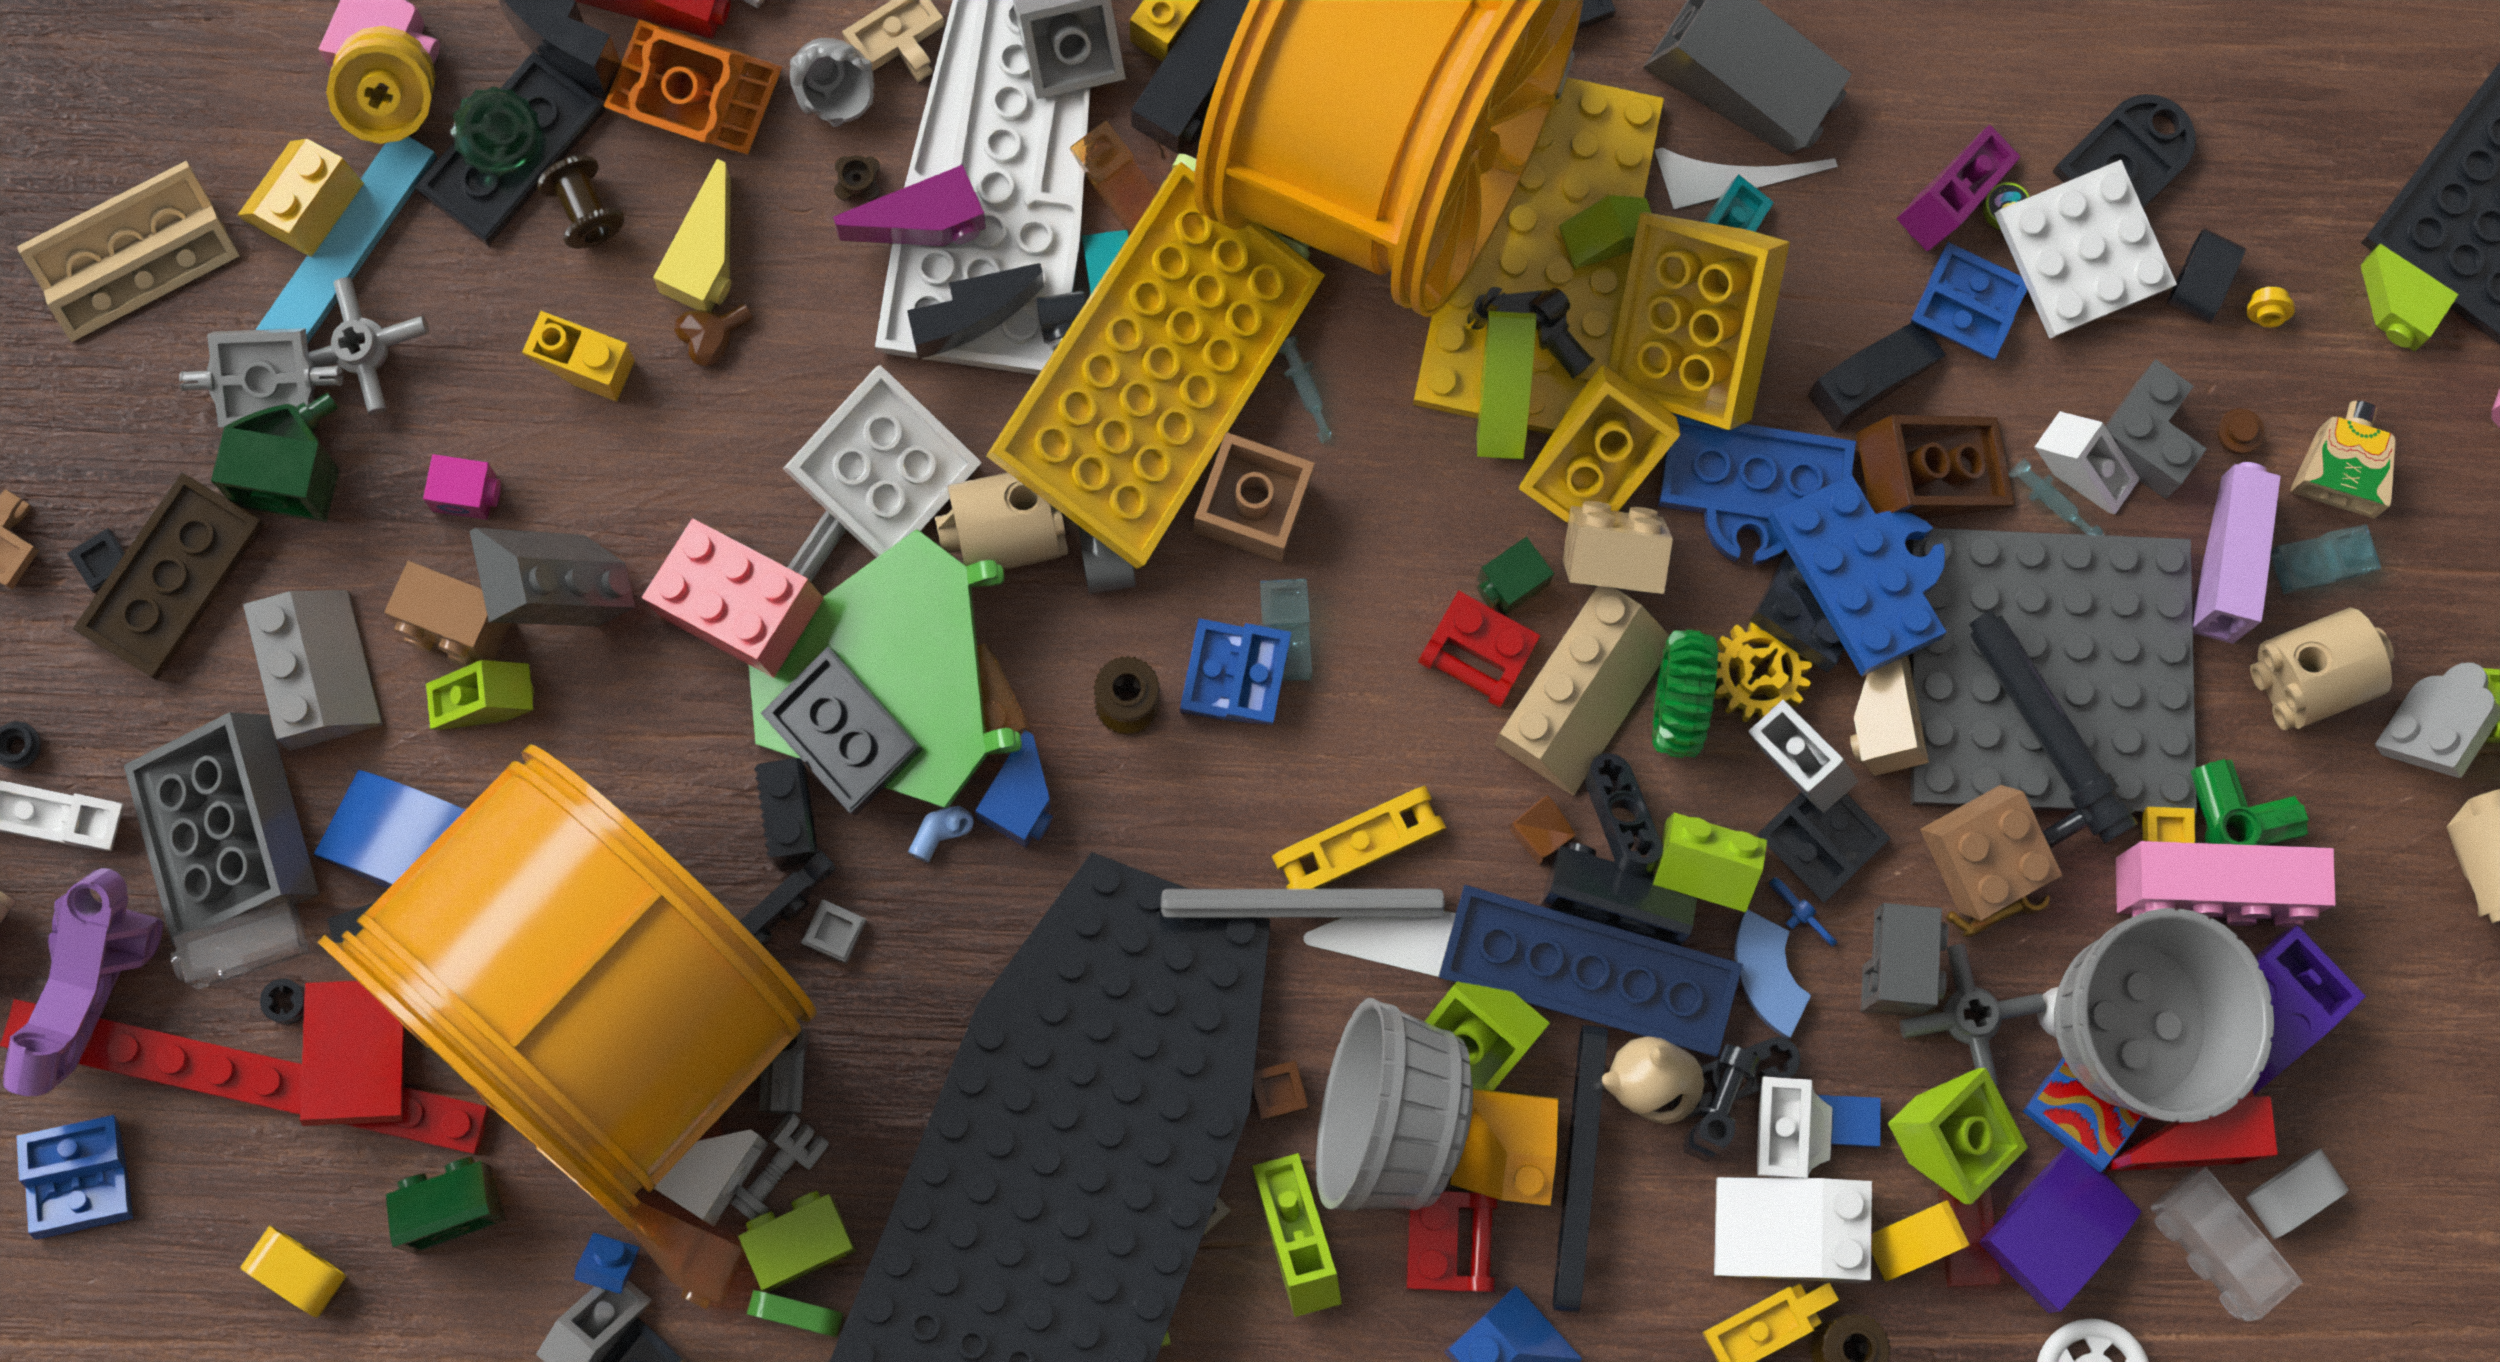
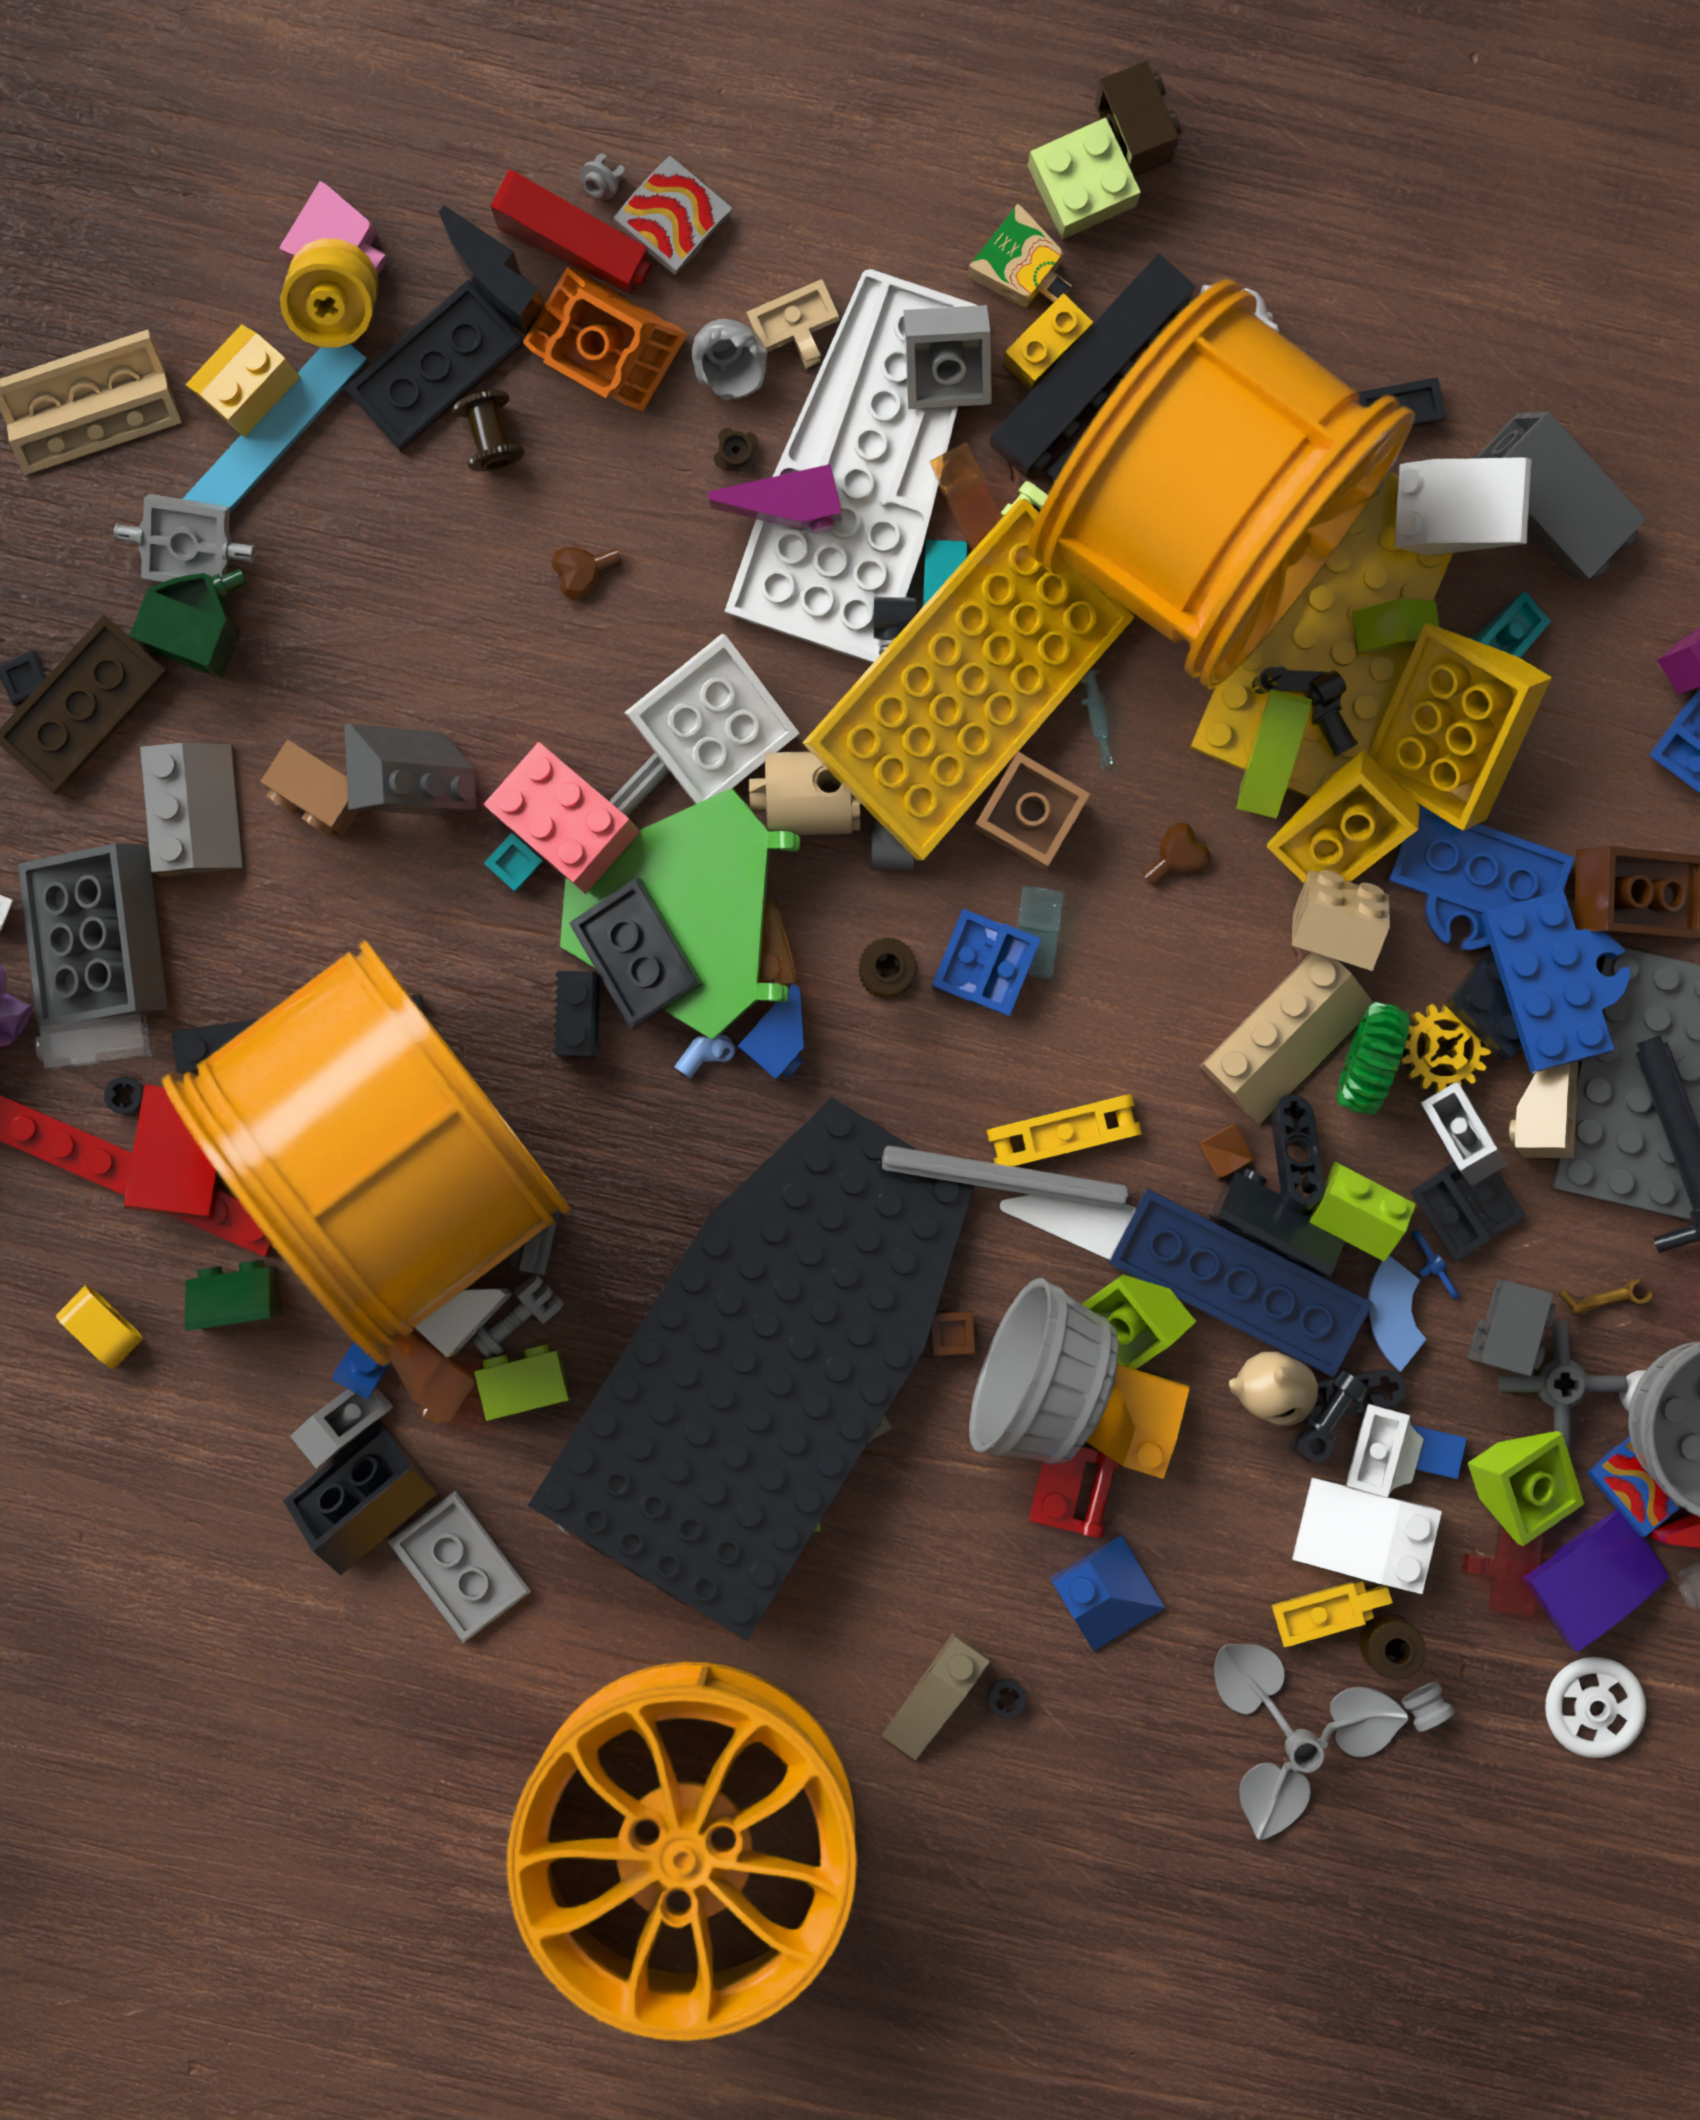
camera: 15 degrees right, 10 degrees up
(373, 351) = (289, 529): light grey bar -> none
(383, 828) = (238, 969): slope -> none
(461, 487) = (343, 672): dark pink brick -> none
(480, 695) = (330, 861): lime slope -> none
(496, 131) = (424, 352): clear green piece -> none
(580, 355) = (464, 572): yellow slope -> none
(687, 659) = (513, 862): none -> teal plate
(699, 257) = (586, 496): light yellow slope -> none
(788, 898) = (561, 1092): black plate -> none
(795, 1313) = (510, 1443): bright green beam -> none
(834, 931) = (599, 1123): light grey tile -> none
(975, 309) = (818, 596): black slope -> none
(1297, 1235) = (944, 1458): lime slope -> none
(1424, 517) = (1178, 854): none -> reddish brown rock
(1486, 636) = (1211, 970): red plate -> none
(1514, 577) = (1245, 923): dark green brick -> none
(1580, 1169) = (1196, 1448): black beam -> none
(1653, 85) = (1462, 504): none -> white slope
(1699, 181) = (1486, 588): white sticker -> none
(1874, 374) = (1607, 797): black slope -> none
(1917, 1240) = (1470, 1567): yellow slope -> none
(1991, 852) = (1610, 1247): medium nougat brick -> none

